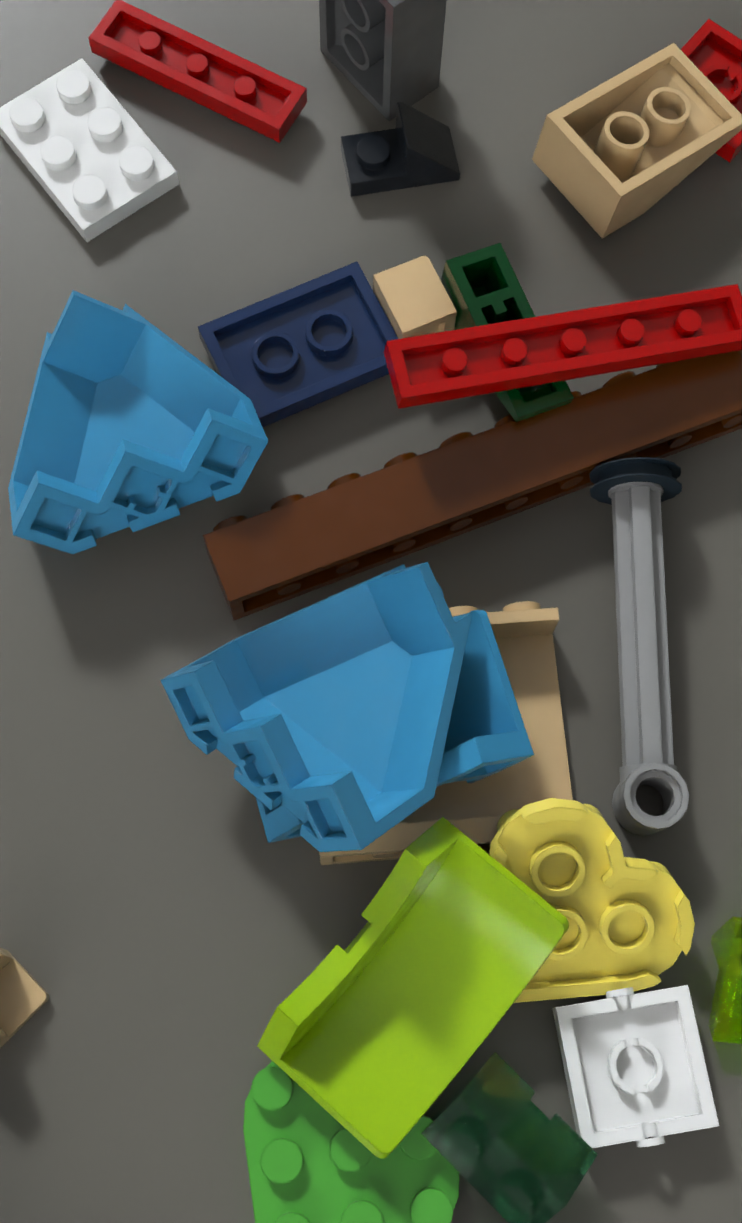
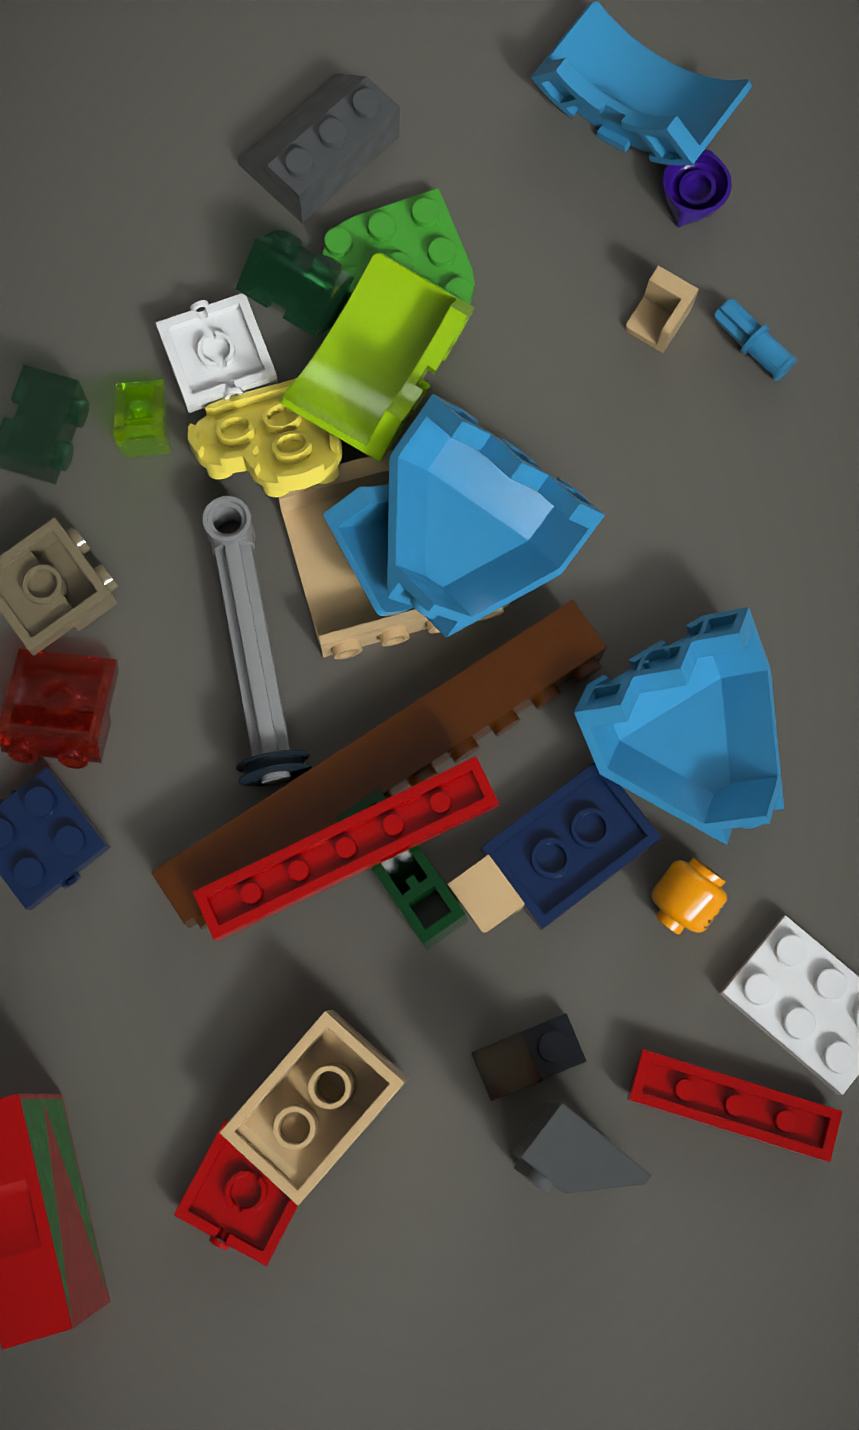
camera: 165 degrees right, 5 degrees up
(183, 264) = (689, 896): none -> light orange head

